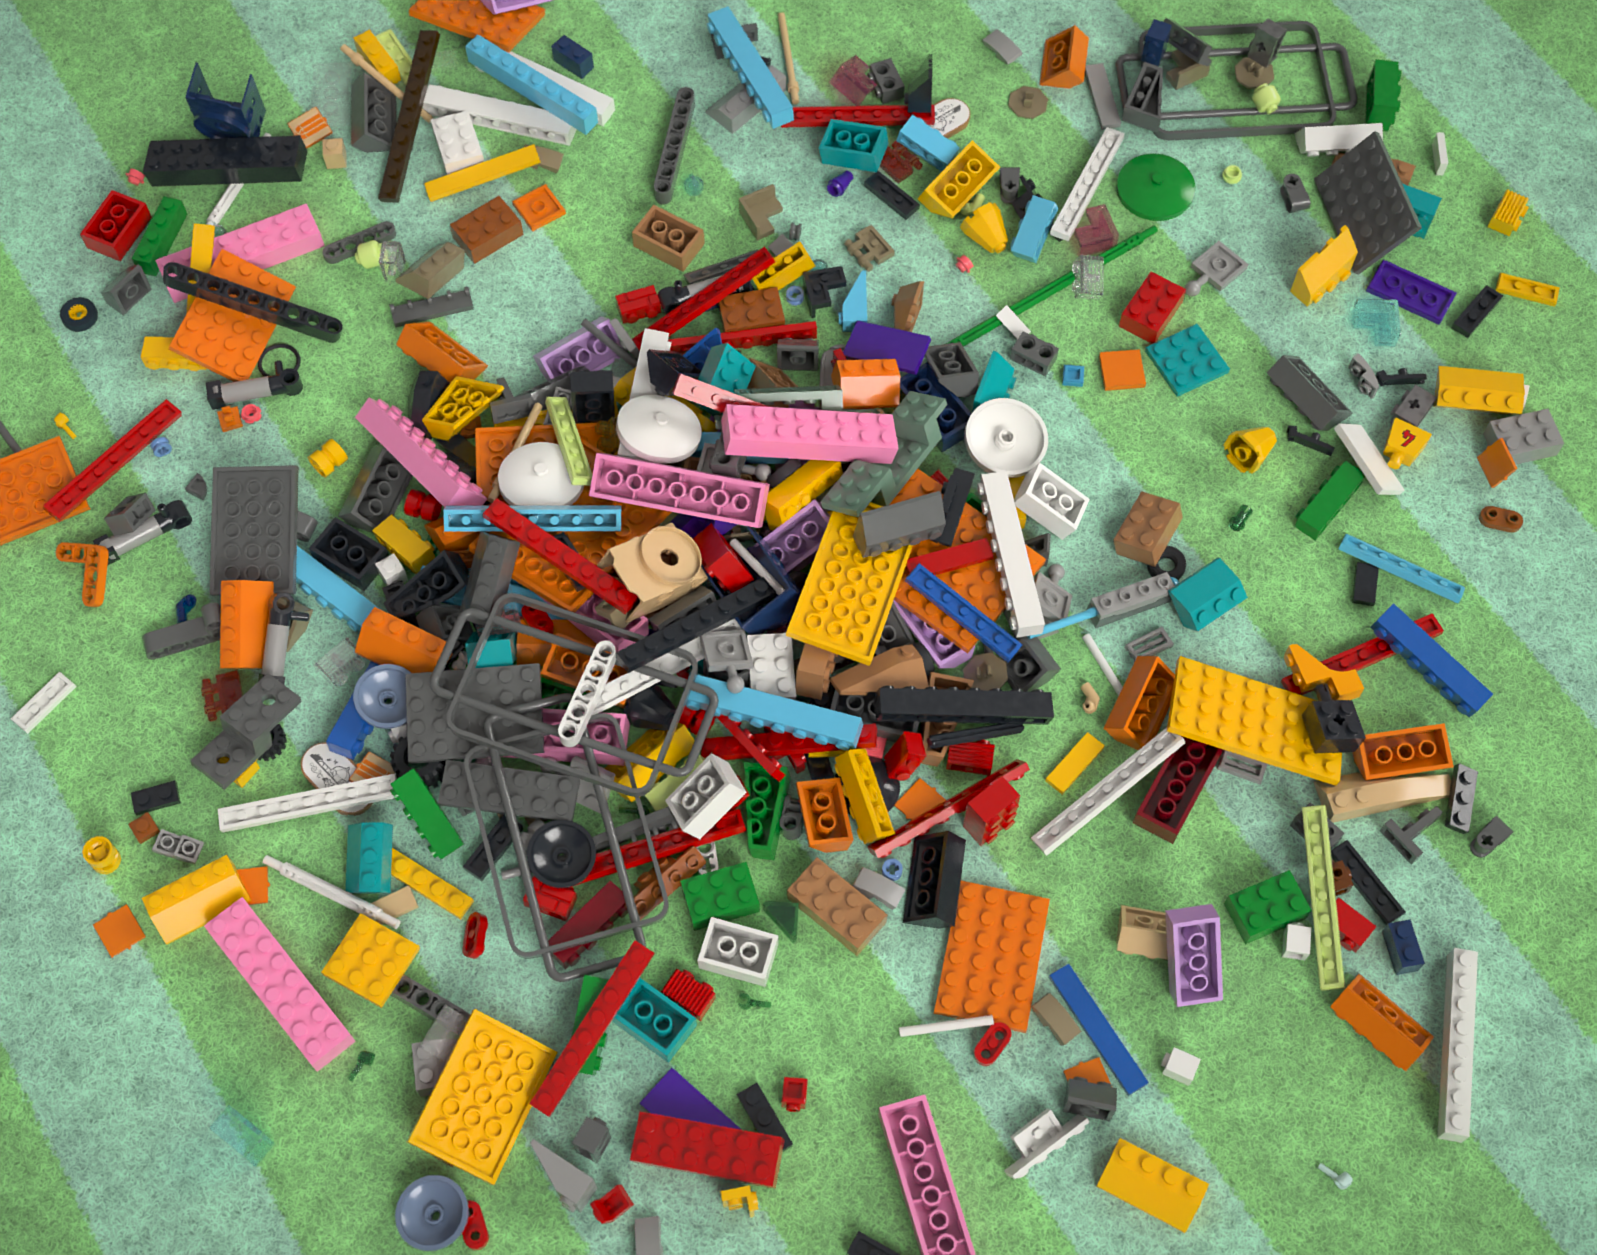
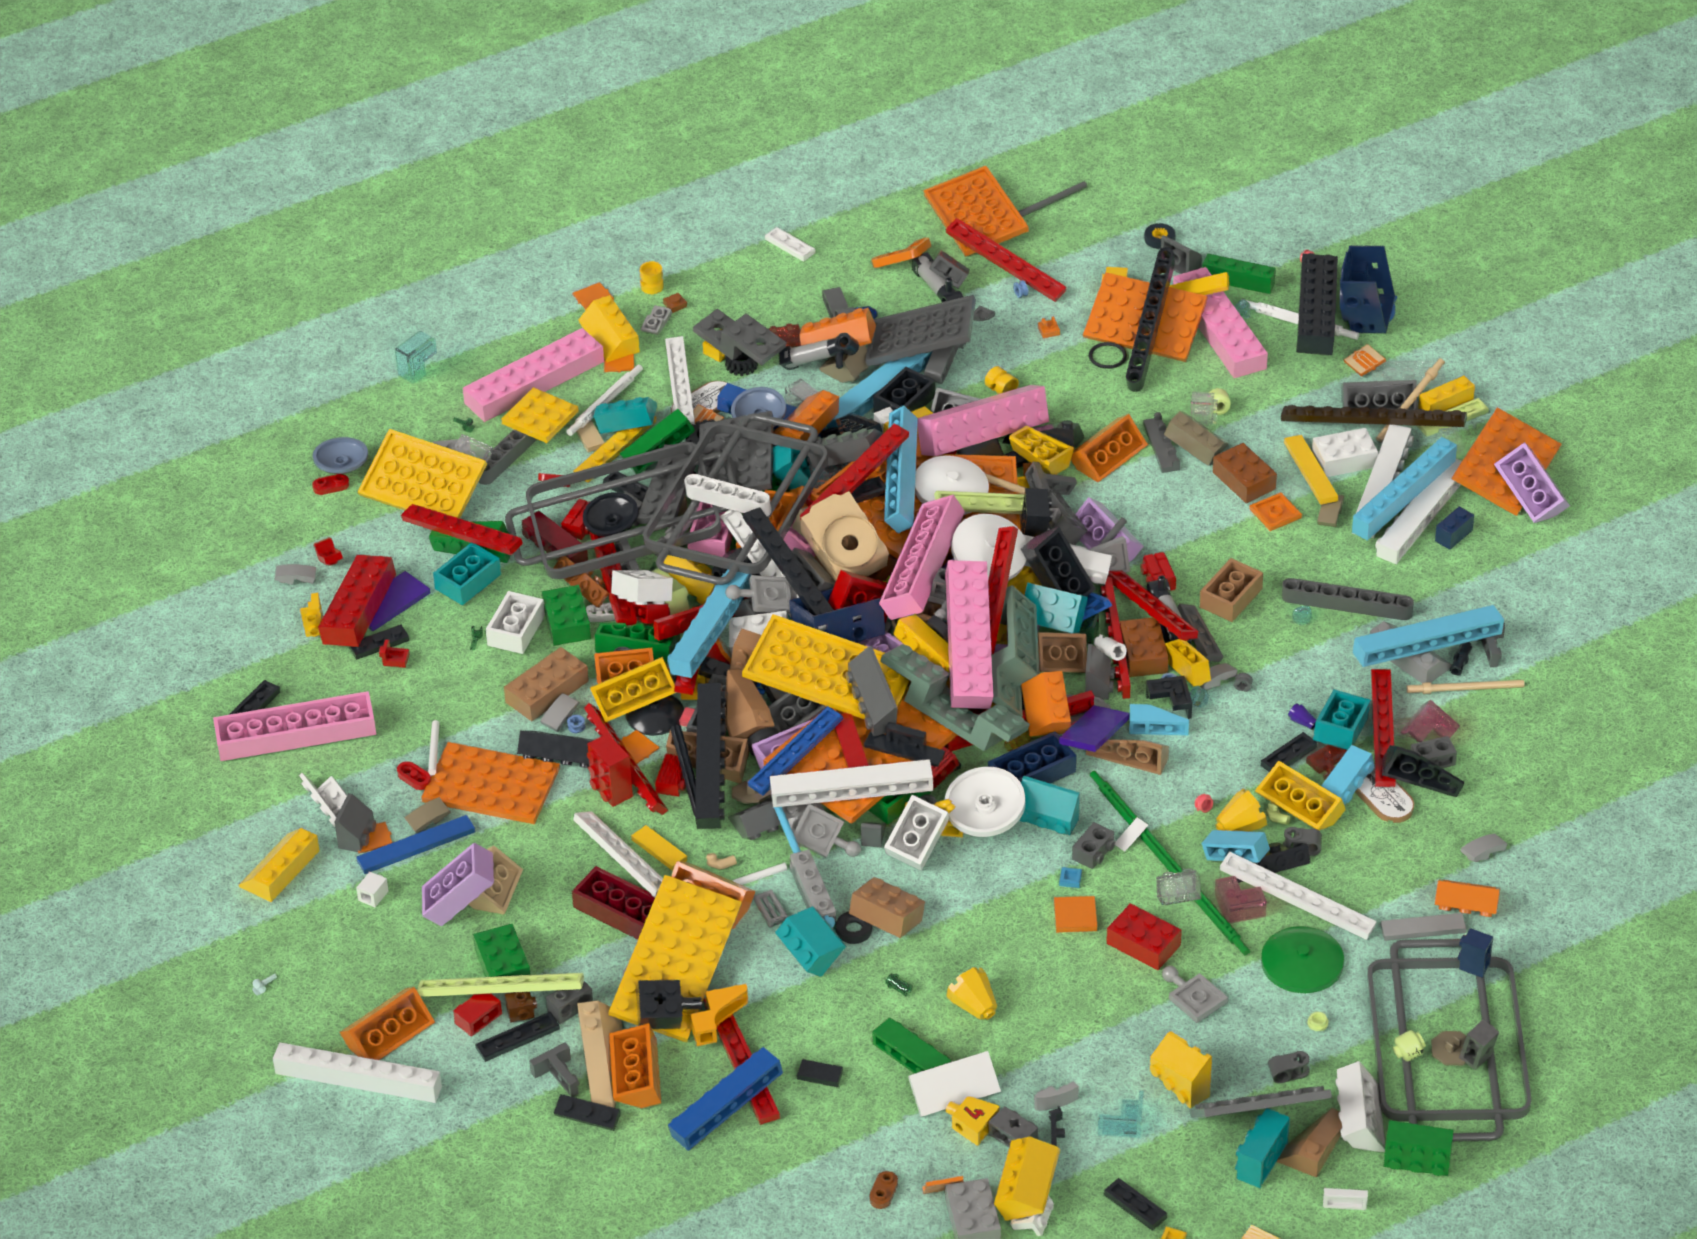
camera: 95 degrees right, 20 degrees down
(61, 421) = (1050, 233): yellow hand -> none
(116, 225) = (1248, 244): red brick -> none
(155, 797) = (699, 306): black plate -> none
(222, 394) = (1076, 338): piece -> none
(251, 409) = (1052, 339): coral plate -> none
(334, 153) = (1332, 374): tan brick -> none
(358, 238) = (1238, 396): dark grey beam -> none
(571, 1183) = (353, 520): light grey slope -> none
(592, 1139) = (377, 536): dark grey brick -> none
(689, 994) = (486, 597): red brick -> none
(757, 208) = (1265, 653): dark tan panel -> none
(767, 336) = (1110, 647): none -> white wheel
(785, 916) = (538, 652): clear green slope -> none
(873, 243) = (1229, 737): dark tan plate -> none
(905, 756) = (668, 719): red brick -> none
(953, 368) = (1068, 769): dark grey slope -> none
(1020, 474) = (945, 804): none -> yellow arm
(1028, 102) = (1415, 868): dark tan piece -> none
(1145, 100) = (1404, 943): dark grey wedge -> none
(1187, 72) = (1455, 993): dark tan panel -> none
(1187, 360) = (1085, 964): teal plate -> none
(1189, 43) = (1475, 972): dark grey hinge -> none
(1296, 941) = (467, 970): white brick -> none
(1308, 393) = (1039, 1051): dark grey slope -> none
(1310, 442) = (991, 1036): black piece -> none
(1402, 568) = (832, 1100): medium azure tile -> none
(1403, 947) = (450, 1046): dark blue brick -> none
(1411, 291) = (1164, 1155): dark purple tile -> none
(1491, 835) = (545, 1125): dark grey piece -> none

